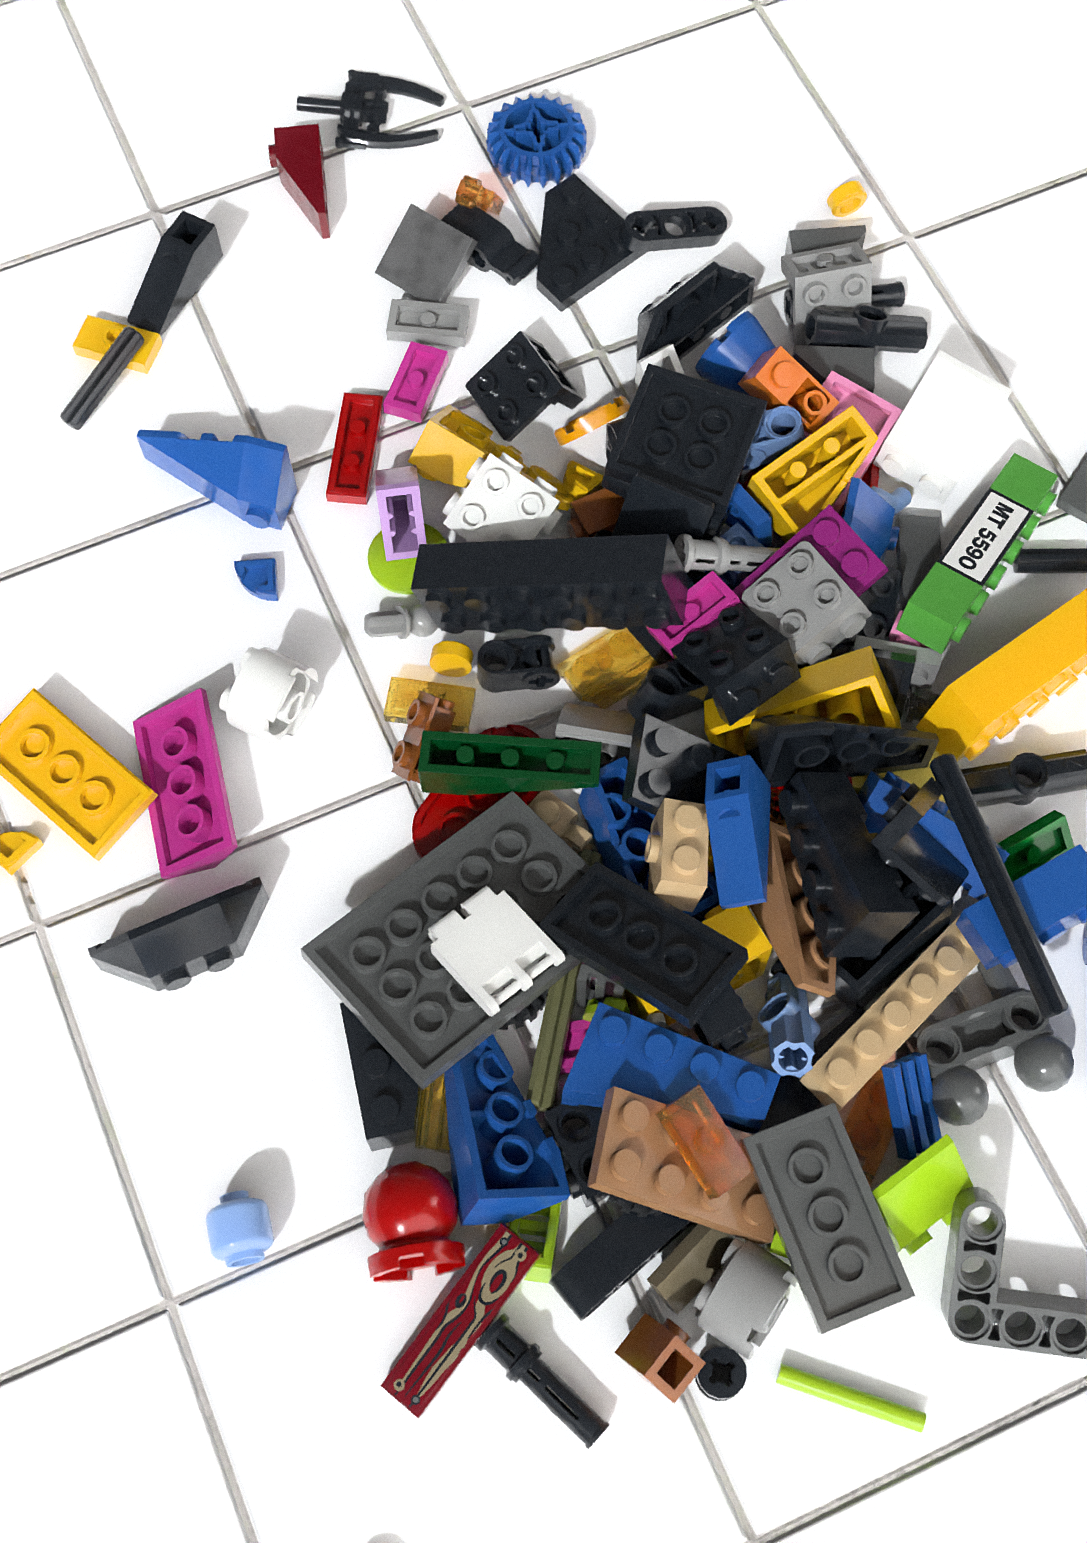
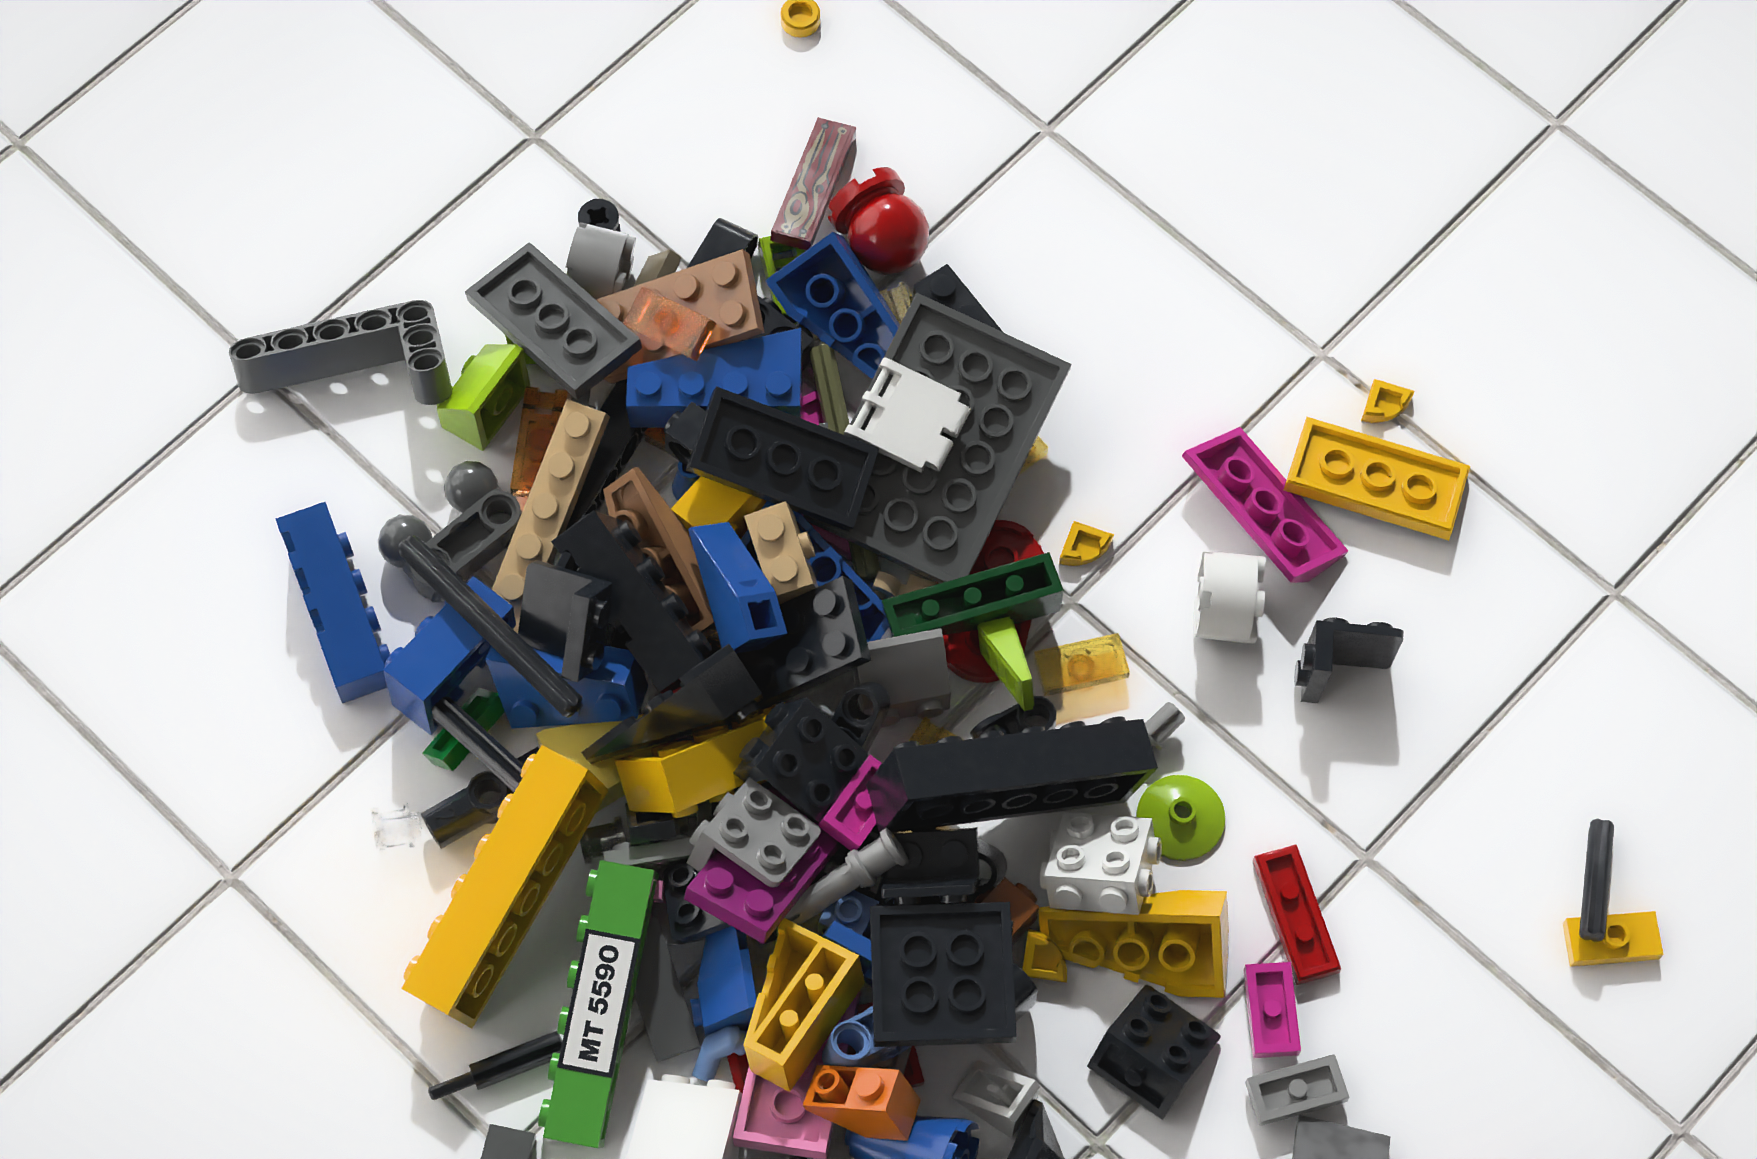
camera: 155 degrees right, 0 degrees up
(176, 271) = (1598, 1034): black slope -> none
(186, 941) = (1185, 372): black wedge -> none
(209, 621) = (1343, 644): none -> black bracket
(239, 1229) = (1017, 181): light blue head -> none
(240, 475) = (1392, 814): wedge -> none
(259, 577) = (1313, 735): blue tile -> none
(370, 818) = (1084, 545): none -> yellow tile
(400, 511) = (1206, 829): lavender slope -> none
(425, 714) = (1071, 625): dark orange hinge -> none
(451, 659) = (1088, 711): yellow tile -> none
(499, 704) = (1005, 656): none -> lime slope
(519, 1357) = (751, 177): black pin -> none
(592, 420) = (1058, 1013): light orange tile -> none
(661, 1356) = (649, 209): dark orange brick -> none
(788, 1026) = (630, 446): medium blue piece -> none
(851, 1398) = (489, 249): lime bar -> none
(916, 1103) = (495, 448): blue tile -> none
(1023, 802) = (478, 741): none -> black axle

